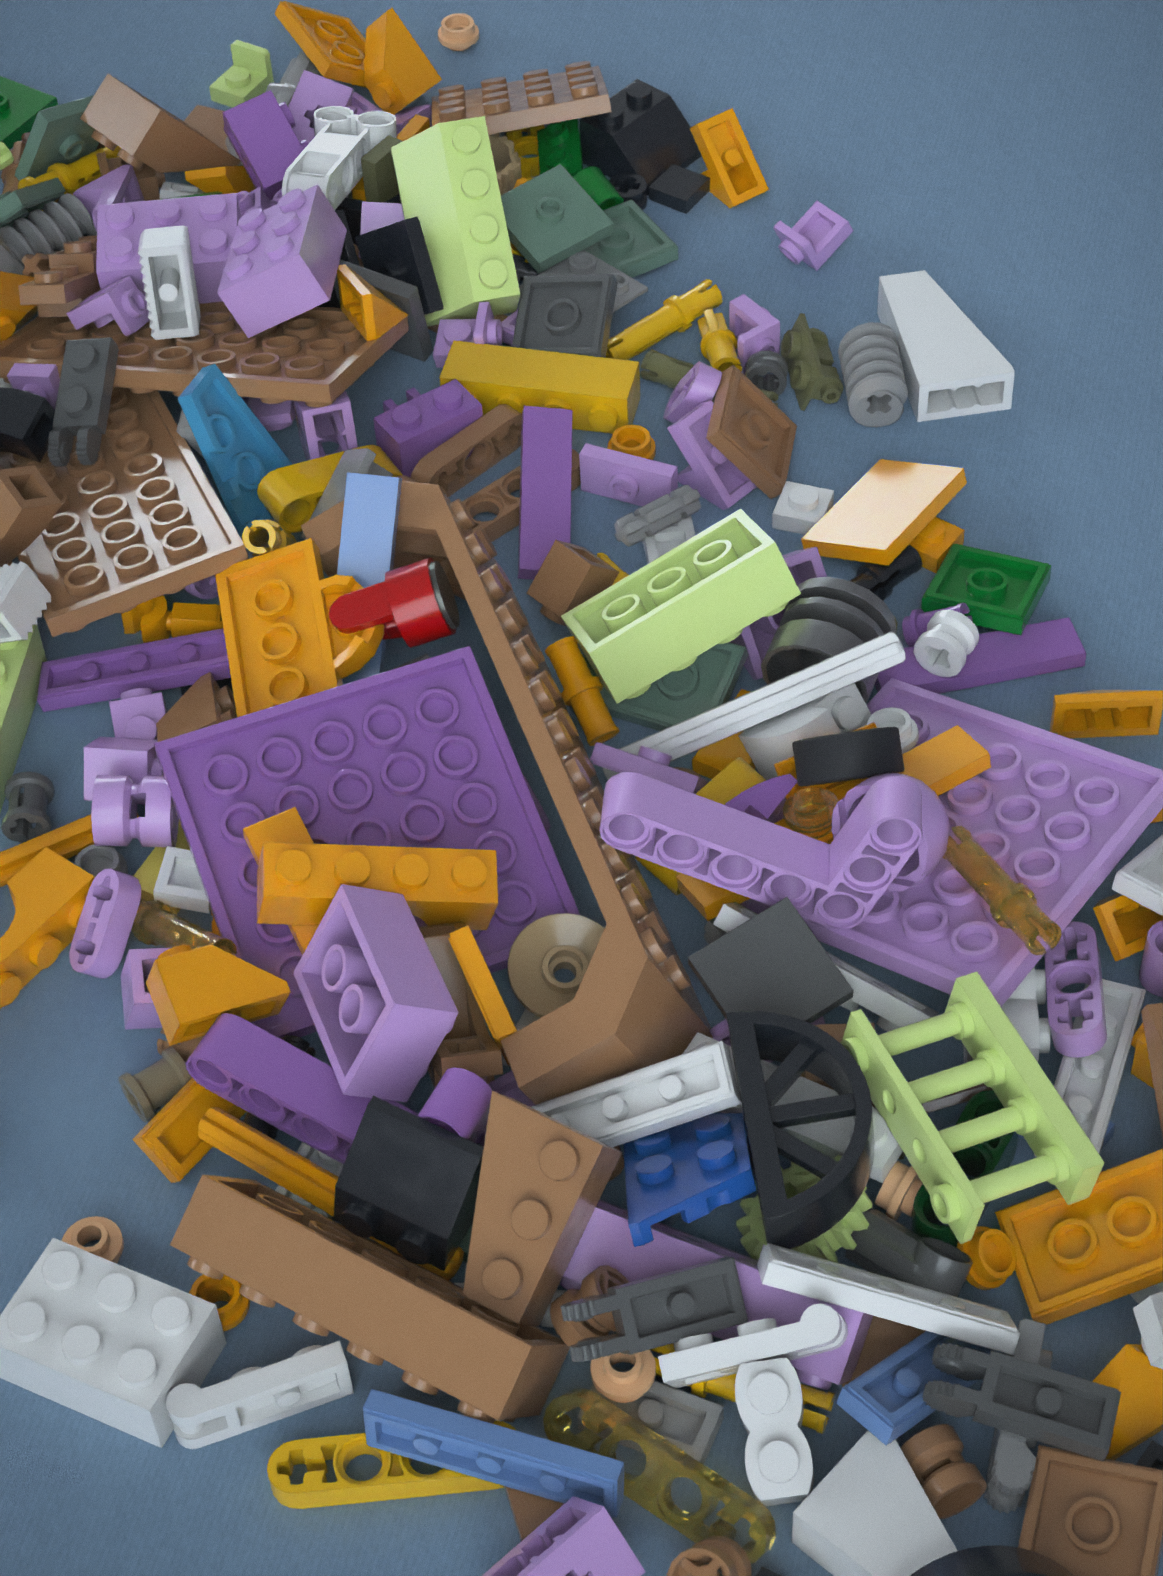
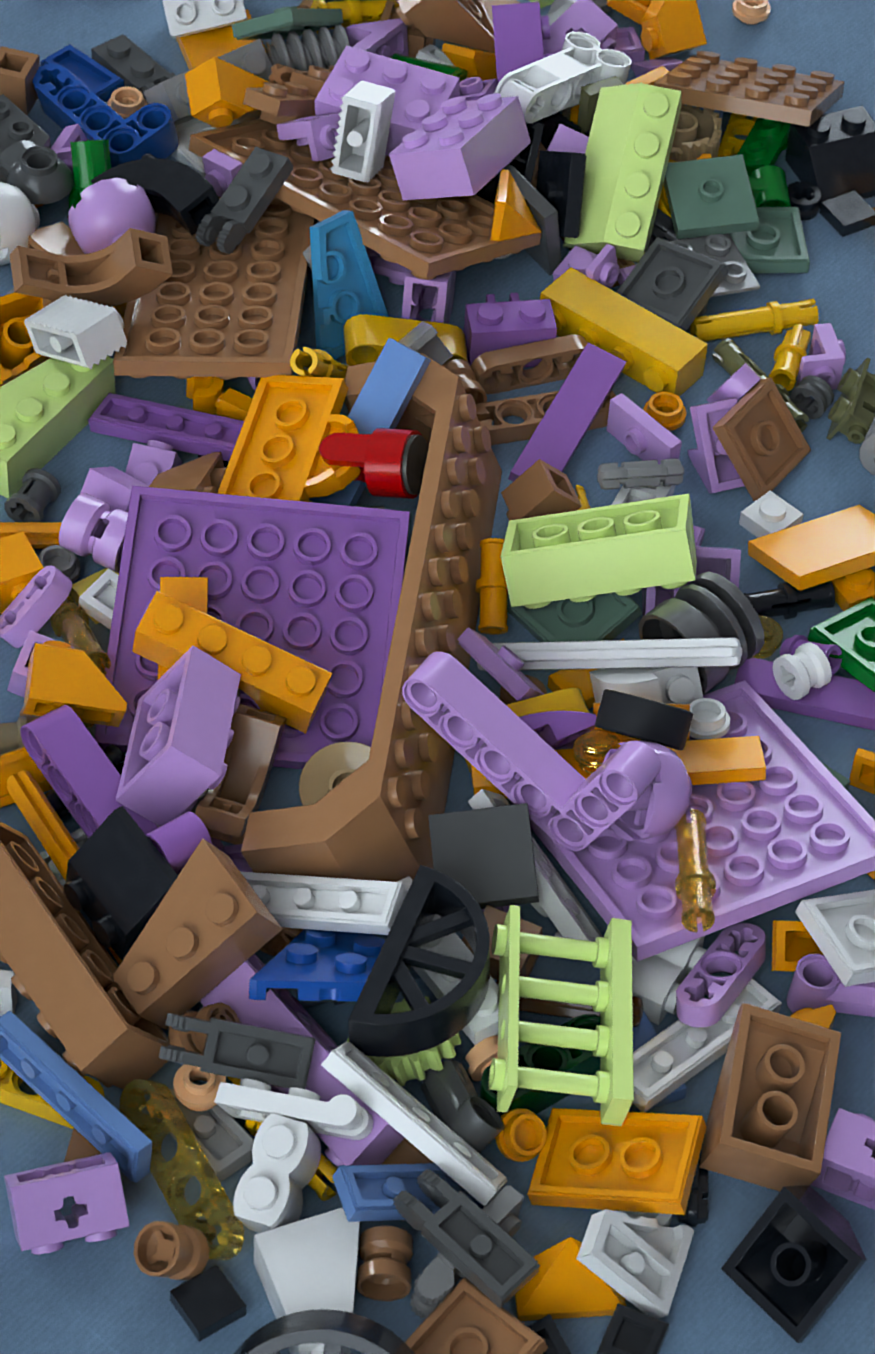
camera: 20 degrees right, 0 degrees up
(482, 985) = (262, 787): light orange tile -> none

